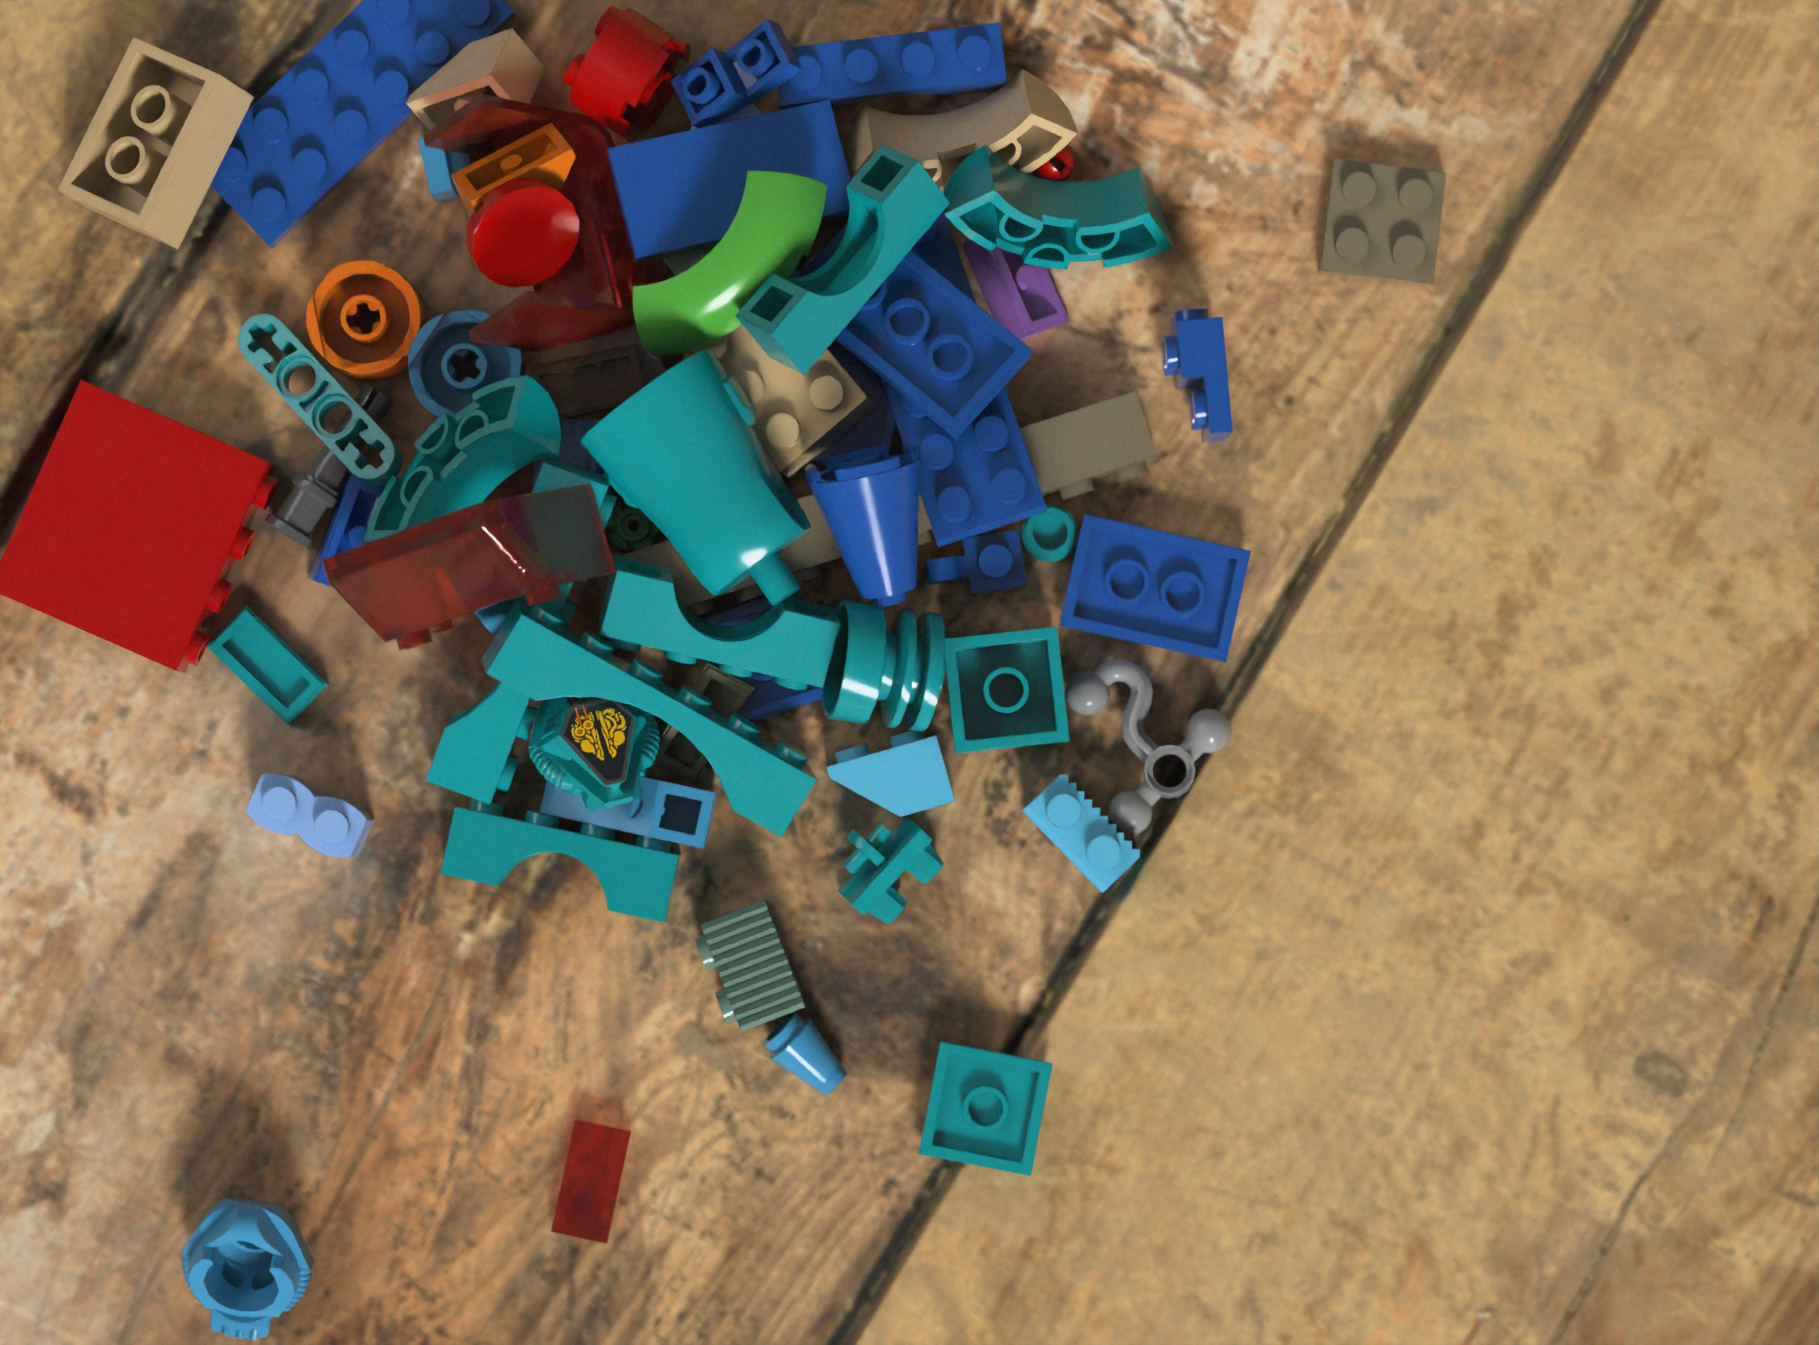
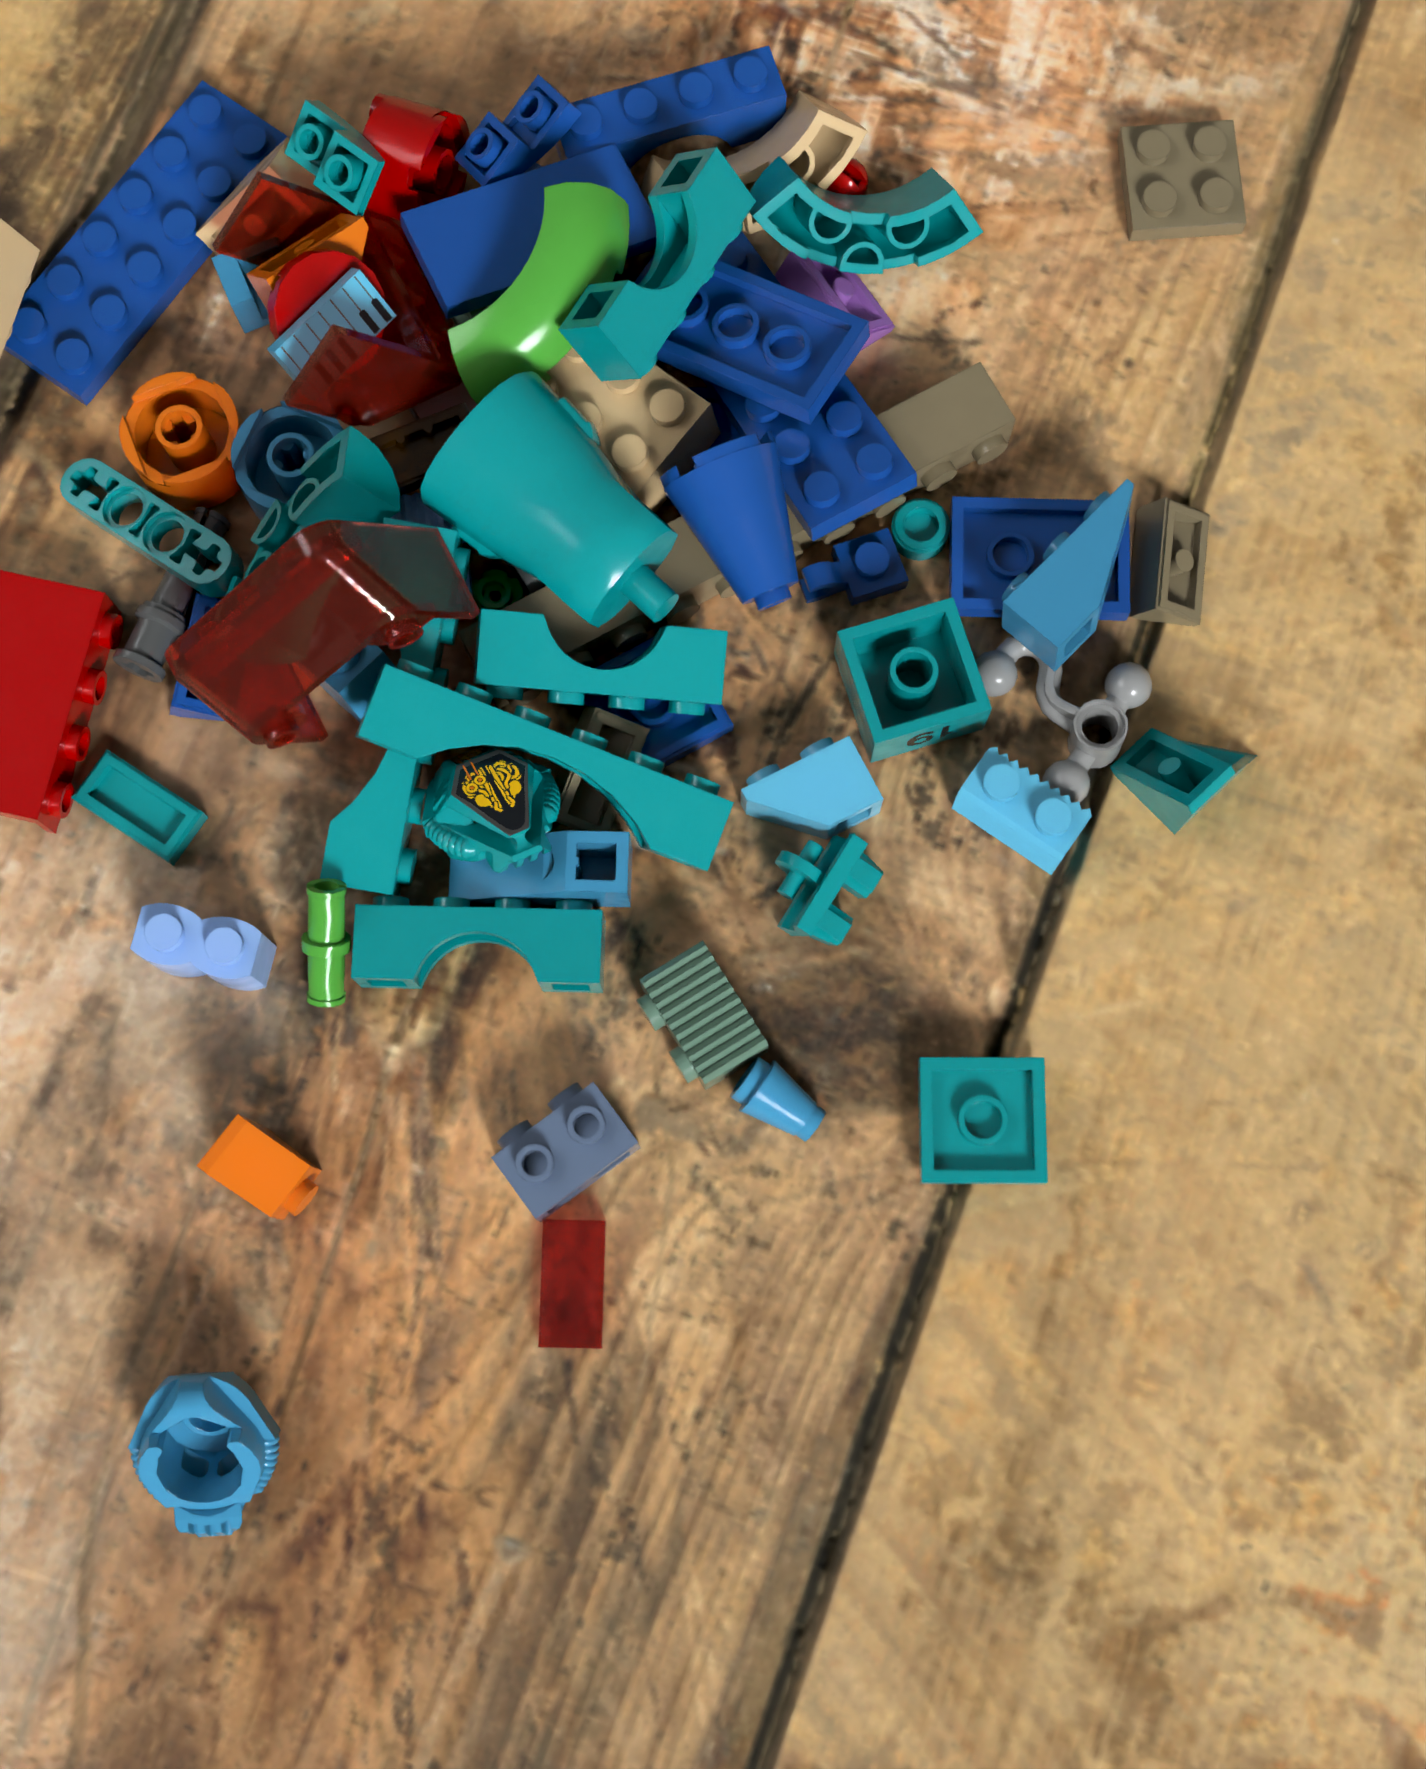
camera: 10 degrees left, 10 degrees down
(334, 1032) = (261, 1168): none -> orange slope
(422, 835) = (326, 942): none -> bright green pin
(524, 258) = (348, 303): none -> medium azure tile
(563, 80) = (336, 154): none -> teal slope
(605, 1064) = (564, 1149): none -> sand blue brick
(894, 666) = (783, 673): teal wheel -> none
(1166, 641) = (1065, 595): none -> dark azure slope
(1198, 359) = (1042, 332): blue plate -> none
(1240, 820) = (1176, 775): none -> teal slope
(1278, 613) = (1168, 563): none -> dark tan slope

